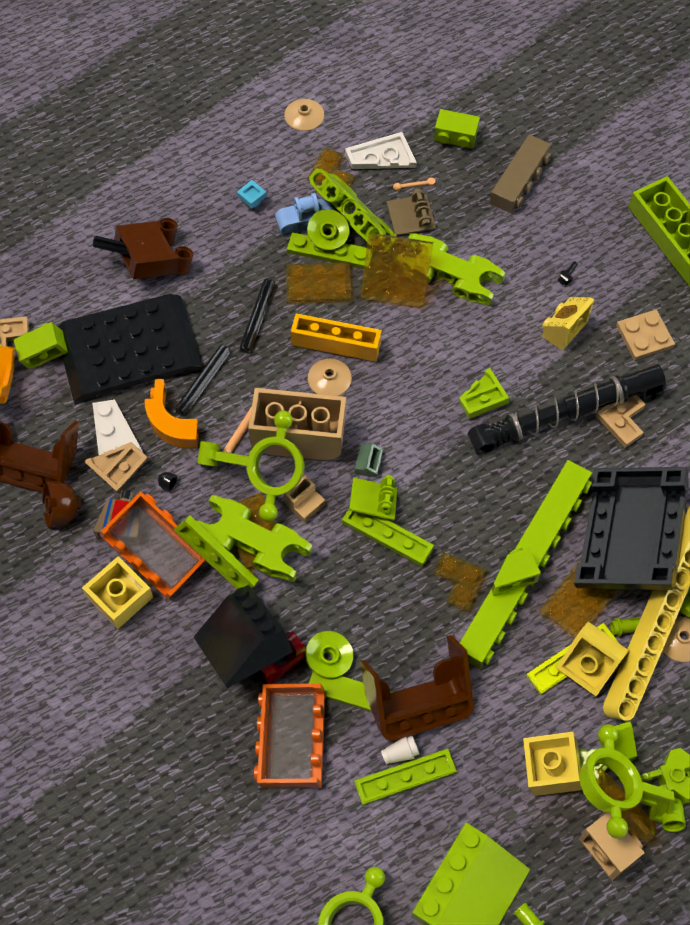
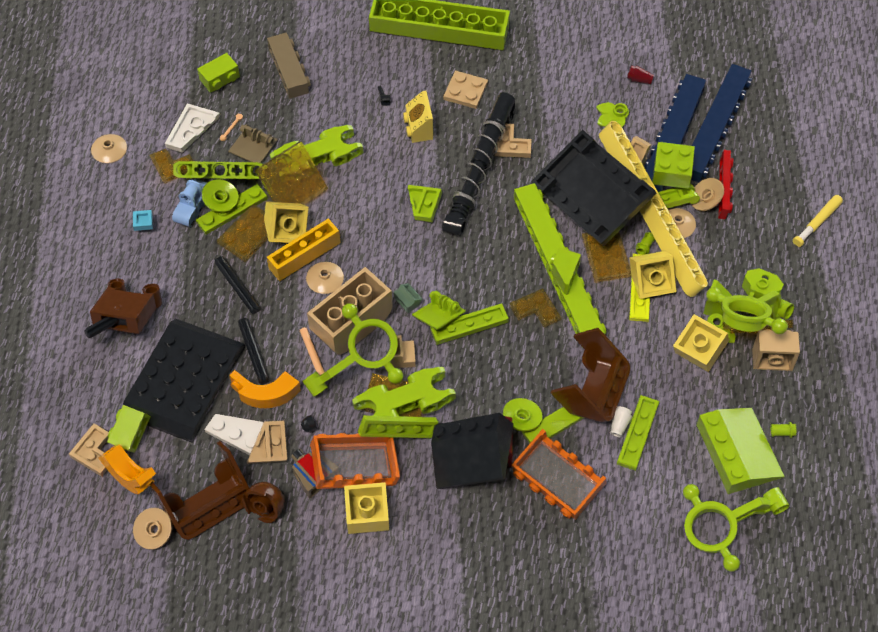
camera: 50 degrees left, 5 degrees down
(350, 299) = (285, 221): none -> light yellow slope

